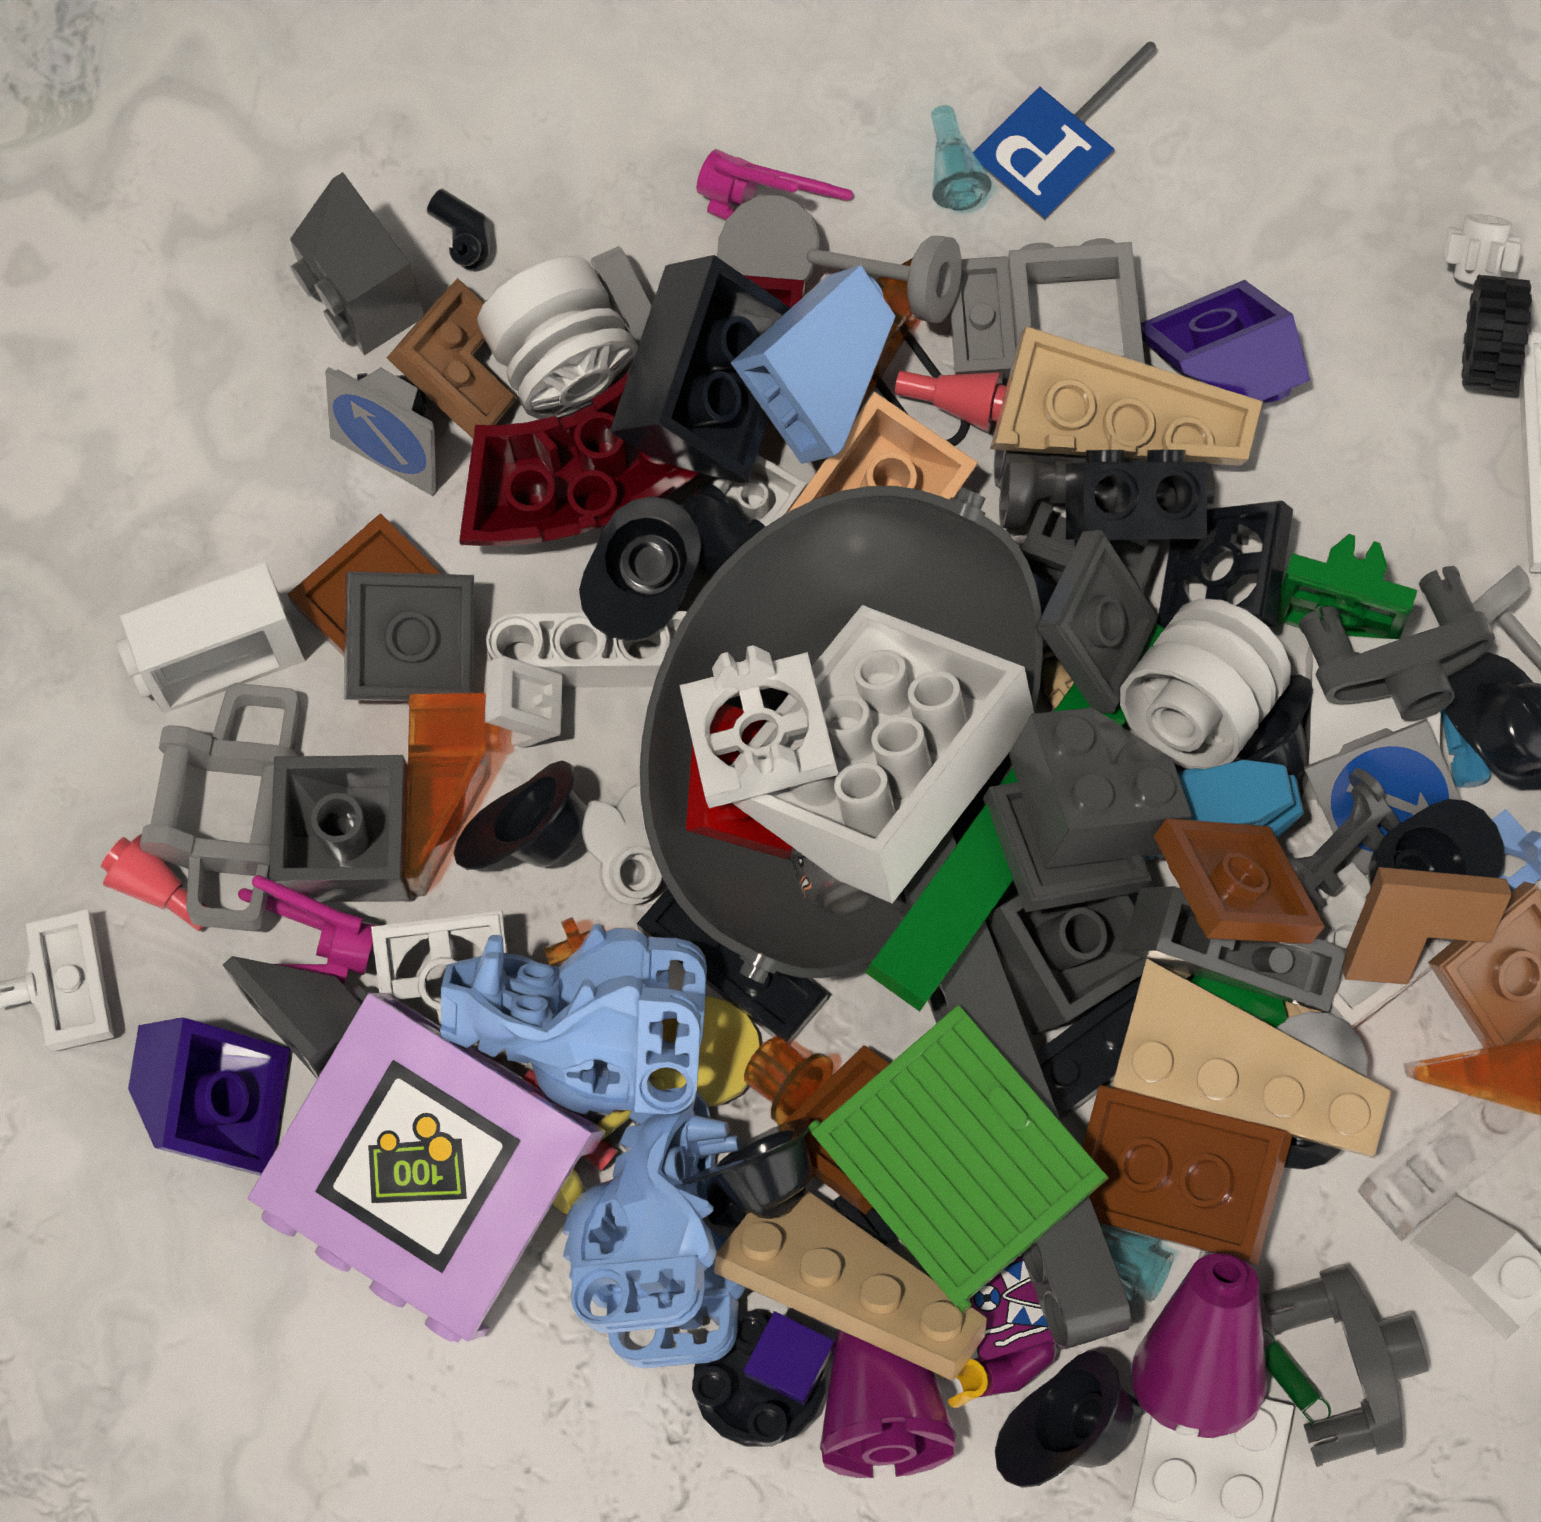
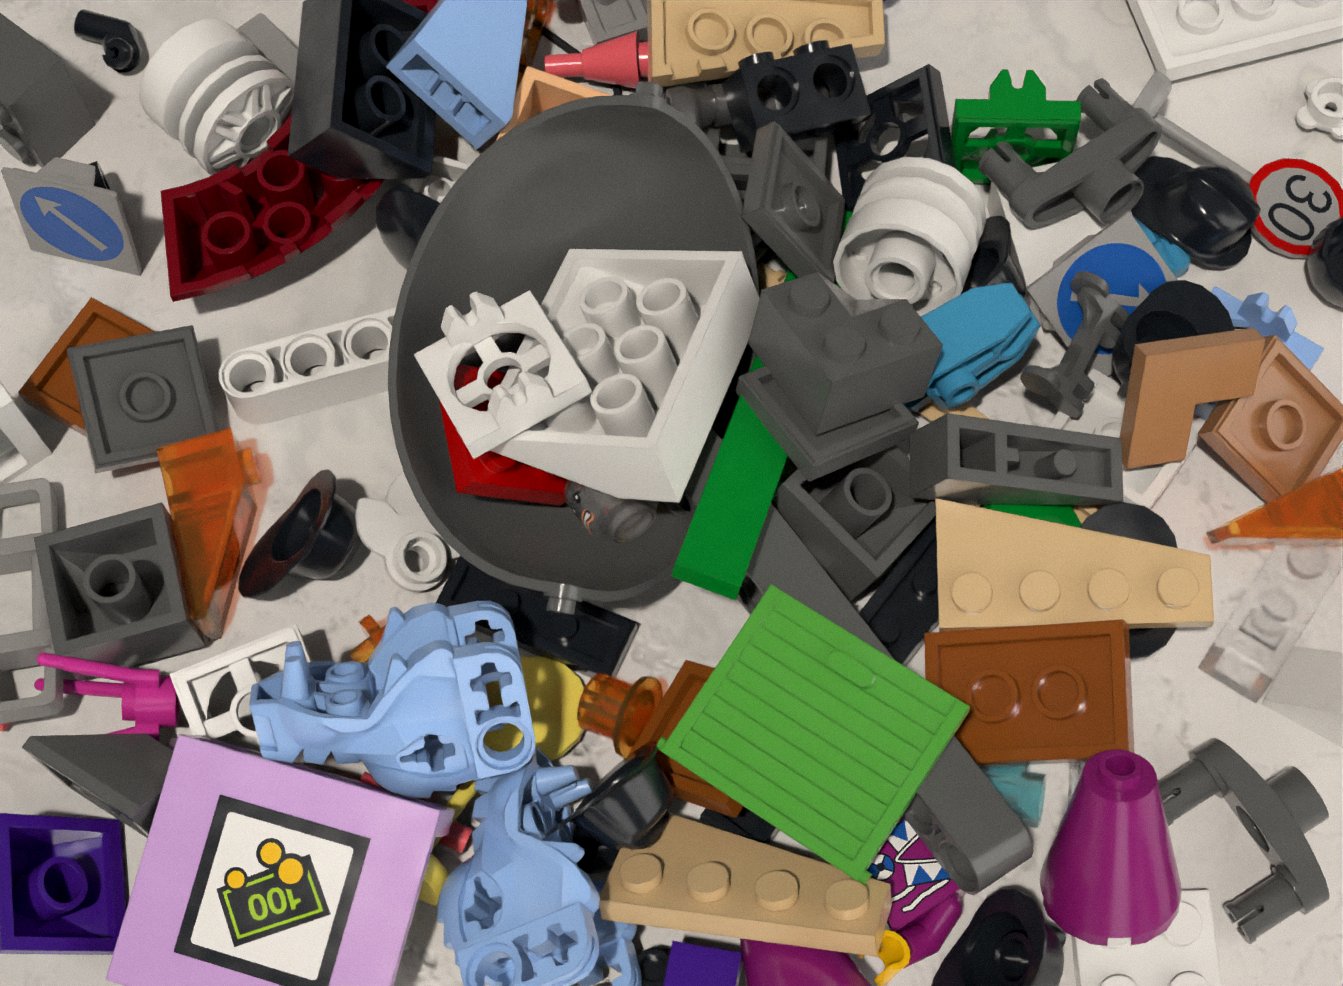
camera: 15 degrees left, 5 degrees down
(442, 364) = (117, 144): medium nougat tile -> none
(523, 700) = (269, 426): white bracket -> none
(640, 568) = (350, 277): black piece -> none
(1238, 881) = (1005, 394): dark orange plate -> none
(1290, 1377) = (1200, 866): green piece -> none

